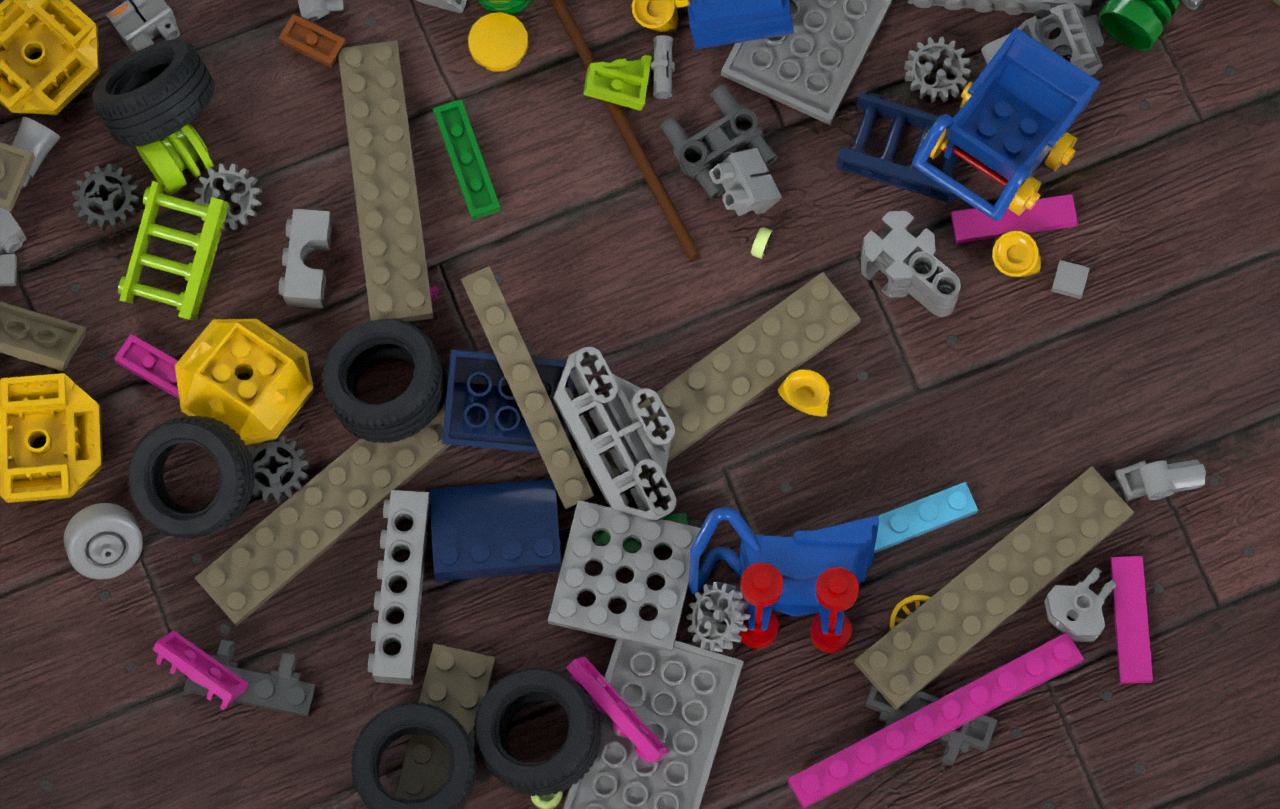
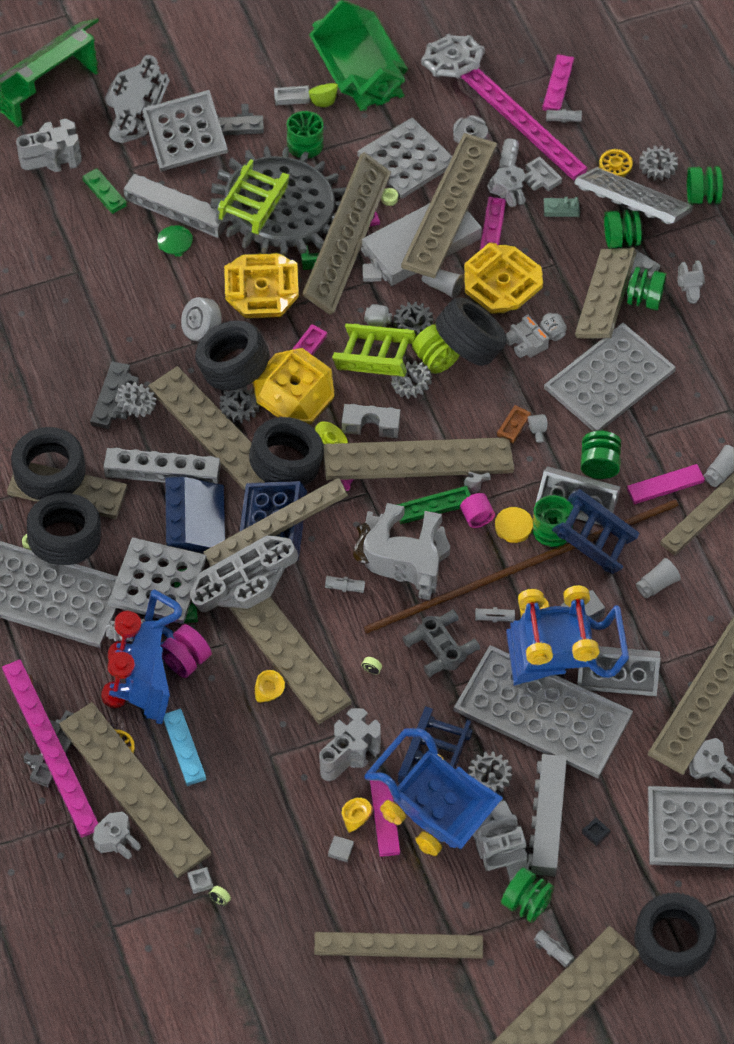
camera: 90 degrees right, 15 degrees down
(100, 252) = (378, 316): none -> light grey head
(200, 668) = (119, 363): dark pink plate -> none
(257, 654) = (135, 399): none -> light grey gear
(339, 317) = (330, 433): none -> neon yellow dish
(419, 96) = (474, 481): none -> light grey piece
(481, 90) = (477, 510): none -> dark pink piece
(580, 177) = (403, 556): none -> light grey piece
(616, 288) = (345, 584): none -> light grey pin
(619, 81) = (482, 587): lime wing -> none
(625, 720) = (72, 571): dark pink plate -> none
(746, 183) = (410, 655): light grey hips -> none
(753, 506) = (185, 651): none -> dark pink wheel
(1131, 620) = (107, 871): dark pink tile -> none
(1163, 446) = (220, 895): none -> yellowish green tile
(1166, 479) = (196, 892): light grey piece -> none
(1217, 195) = (398, 945): none -> dark tan plate

